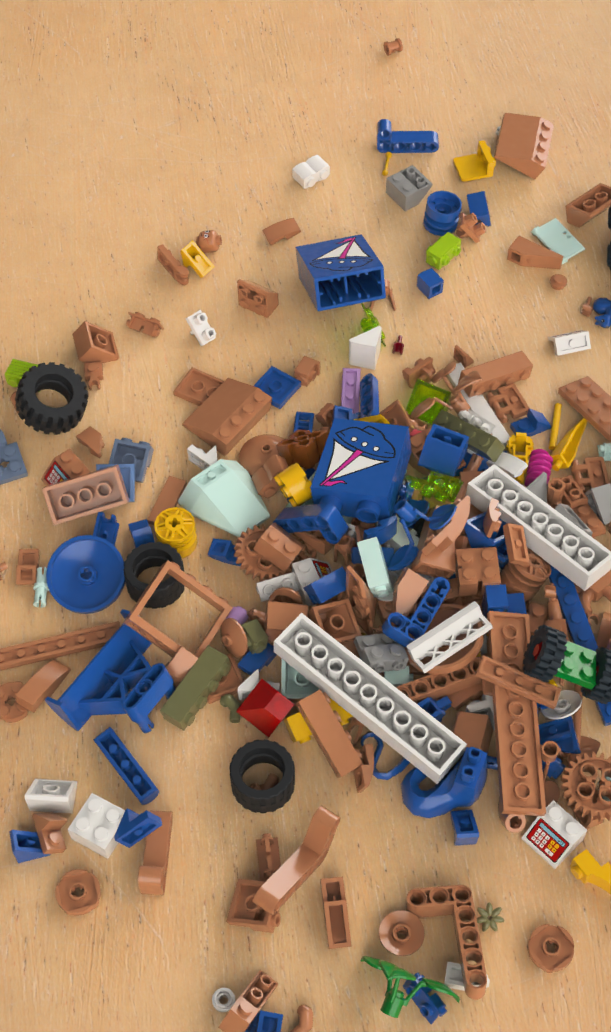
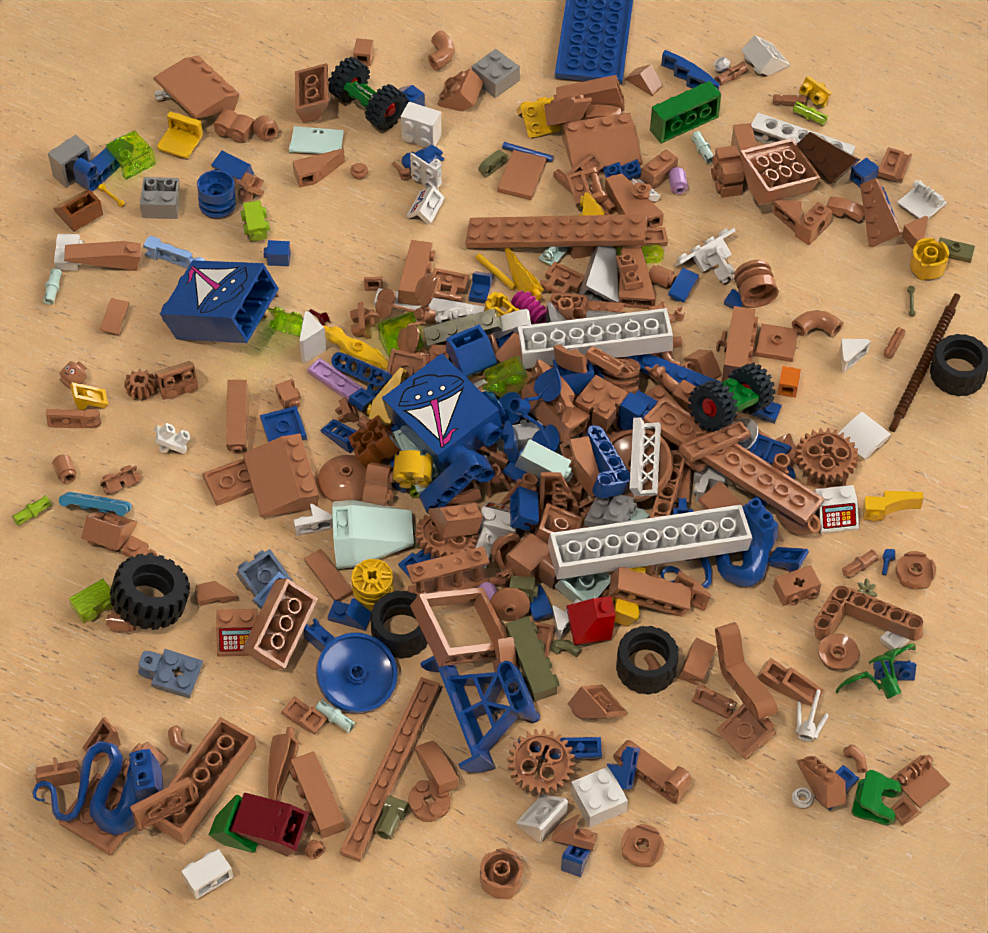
camera: 55 degrees left, 0 degrees up
(76, 294) = (31, 510): none -> lime pin
(92, 740) = (523, 756): none -> nougat gear
(111, 323) = (102, 503): none -> dark azure plate
(125, 288) = (64, 468): none -> nougat brick
(191, 766) = (595, 702): none -> nougat slope
(222, 575) = (448, 565): none -> nougat fence
(230, 279) = (140, 384): none -> nougat gear
(258, 352) = (237, 415): none -> nougat slope
(274, 183) = (52, 286): none -> light aqua pin
(294, 817) = (697, 661): none -> nougat hinge
(297, 957) = (807, 731): none -> white plant
(326, 190) = (107, 254): none -> nougat slope
(352, 154) = (80, 210): none -> dark orange slope
(366, 222) = (167, 252): none -> light blue plate
(385, 110) = (63, 159): none -> light grey brick
(388, 382) = (355, 348): none -> yellow animal
(428, 148) = (132, 154): none -> clear neon green bracket
(437, 842) = (797, 586): none -> nougat brick
(515, 892) = (860, 563): none -> nougat axle
(517, 186) = (234, 125): none -> nougat brick
(535, 203) = (265, 127): none -> nougat head
(546, 911) = (889, 554): none -> blue hand
(597, 320) = (426, 173): none -> white hinge

